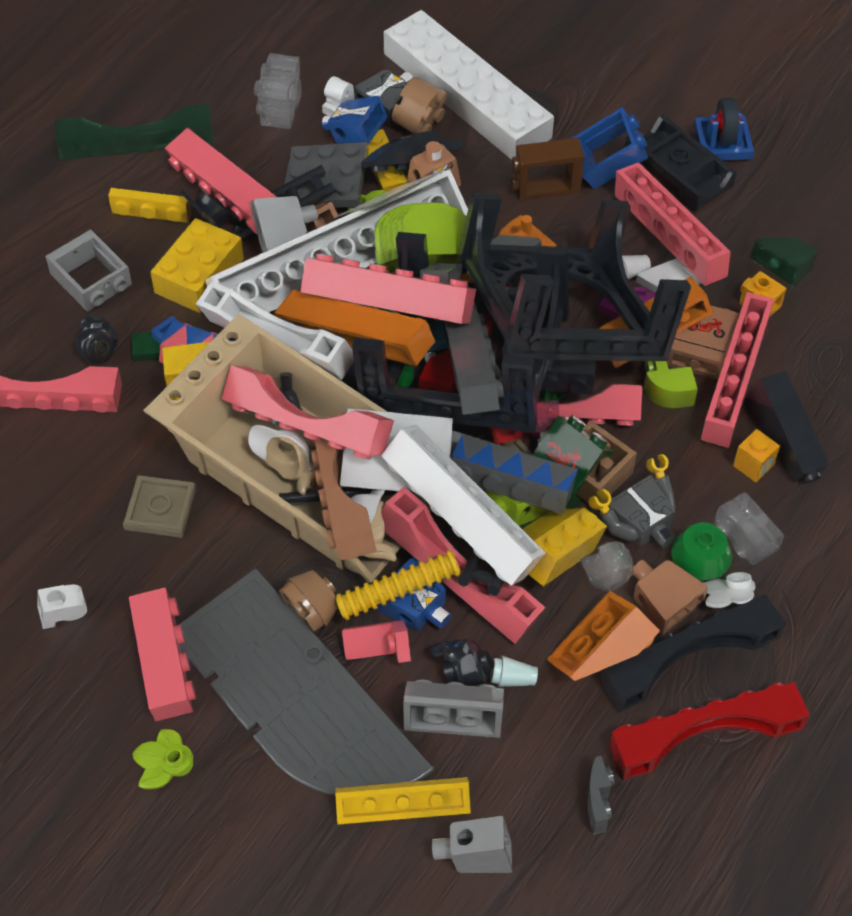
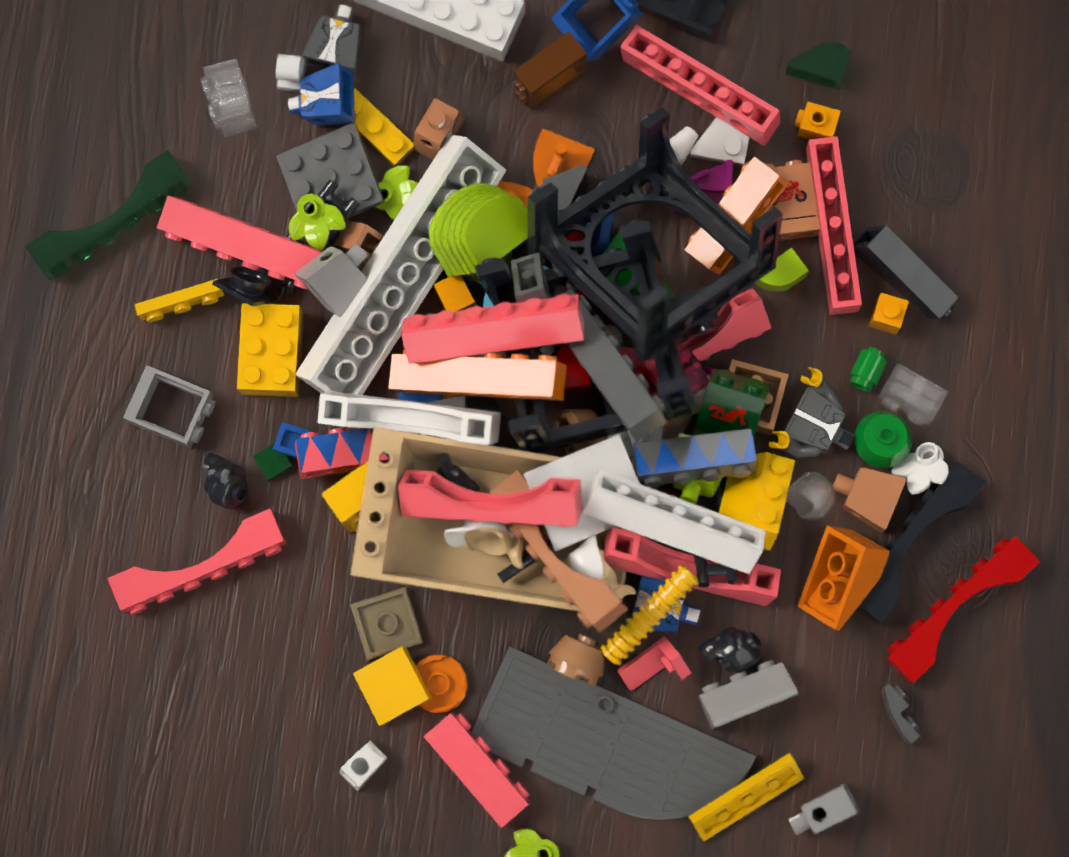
camera: 20 degrees left, 25 degrees up
(130, 552) = (392, 685): none -> yellow tile
(176, 570) = (444, 681): none -> orange tile
(293, 184) = (316, 225): none -> lime plate
(387, 194) = (418, 190): white sticker -> none
(403, 149) = (398, 117): black slope -> none
(419, 106) = (381, 49): medium nougat brick -> none
(510, 672) = (777, 636): light aqua cone -> none
(715, 491) = (868, 369): none -> green brick

